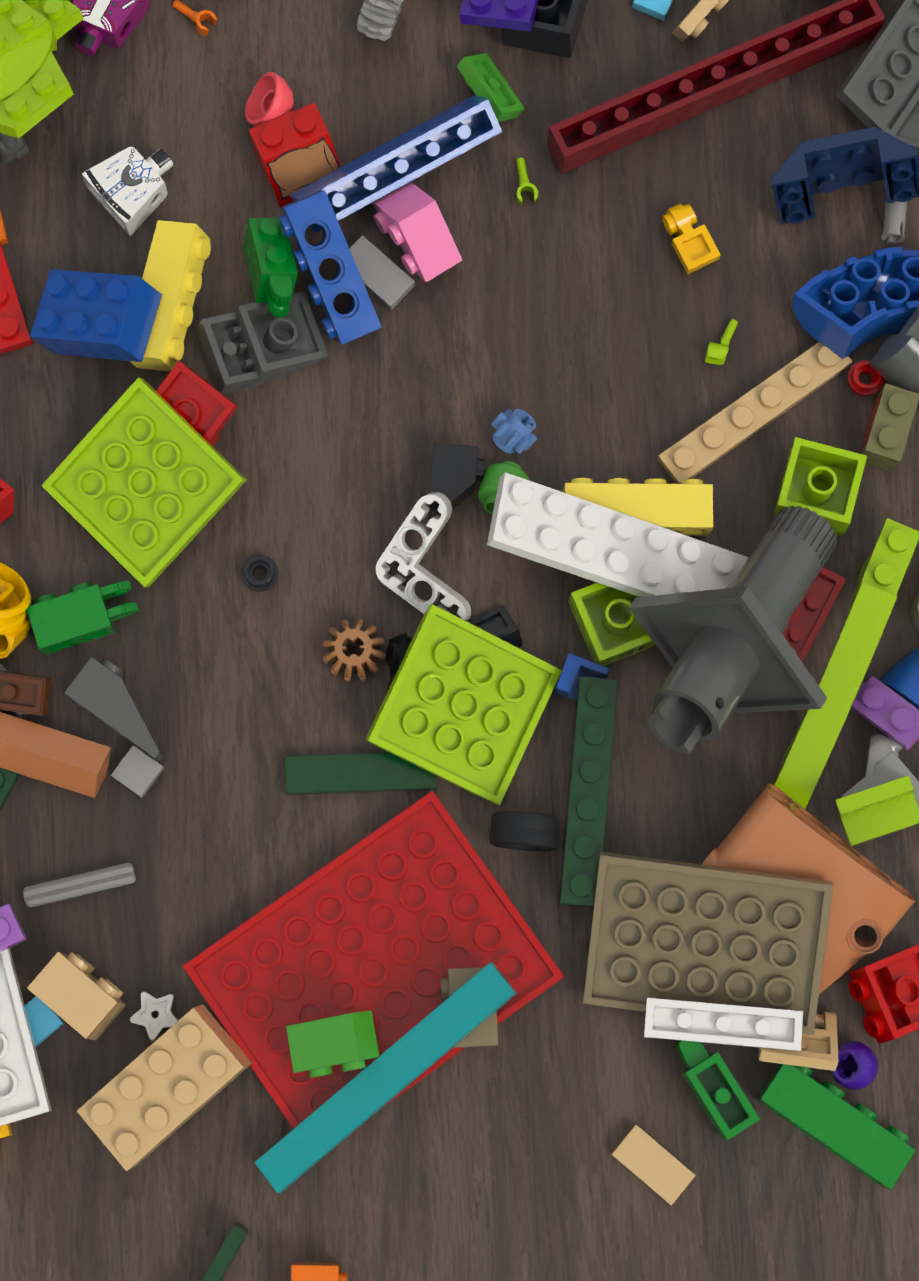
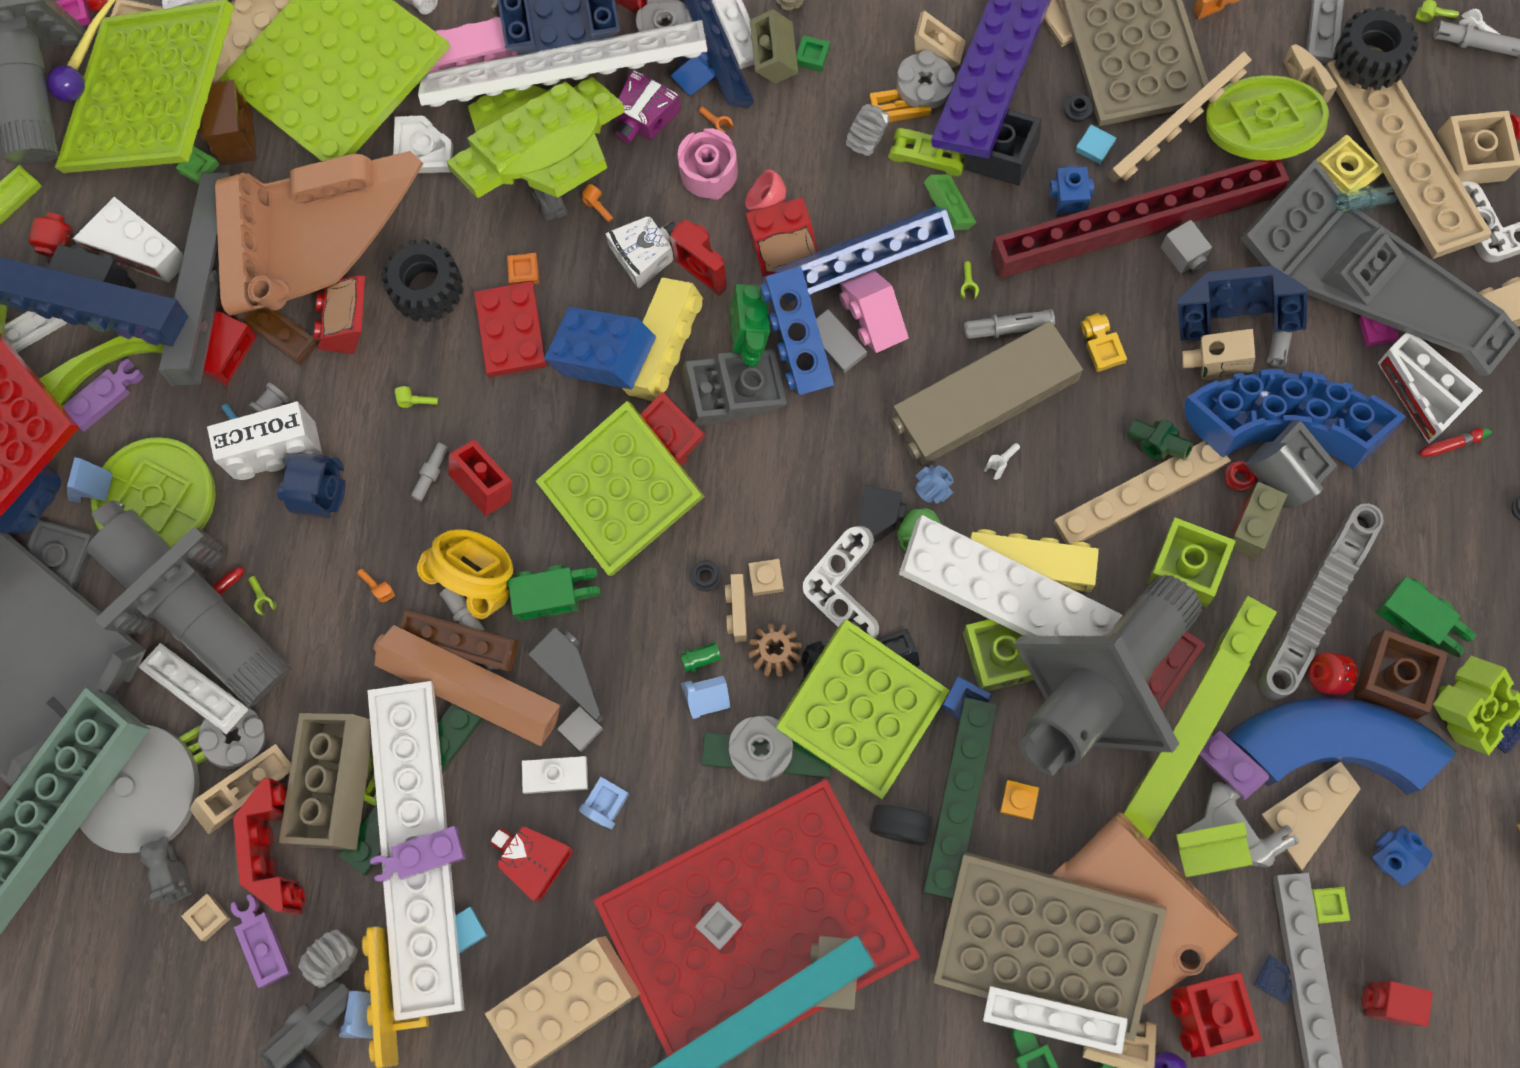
camera: 20 degrees right, 5 degrees down
(55, 130) = (590, 197): none -> orange hand
(77, 995) = (500, 912): tan brick -> none
(79, 885) = (517, 818): light grey axle -> none
(102, 929) = (531, 860): none -> red torso
(115, 829) = (554, 775): none -> white plate
(144, 1015) = (555, 939): white plate -> none
(178, 853) = (604, 803): none -> light blue tile
(192, 185) = (694, 254): none -> red plate
(193, 72) = (708, 163): none -> bright pink brick
(267, 669) = (700, 657): none -> green pin
(280, 714) = (706, 696): none -> light blue tile
(304, 622) = (736, 595): none -> tan plate
(331, 565) = (766, 577): none -> tan plate
(331, 771) = (759, 767): none -> light grey plate
(331, 974) = (718, 925): none -> light grey plate
(333, 1042) = (711, 986): bright green brick -> none
(450, 29) = (923, 152): none -> lime plate
(561, 315) = (985, 393): none -> dark tan brick
(579, 228) = (1007, 324): none -> light grey axle
(587, 396) = (999, 462): none -> white hand
(633, 56) = (1071, 189): none -> blue brick
(655, 785) = (1019, 800): none -> light orange plate
(717, 352) = (1115, 439): lime hand -> none
(769, 346) = (1160, 439): none -> dark green axle
(775, 112) = (1186, 247): none -> light grey brick
(830, 238) = (1222, 355): none -> tan torso

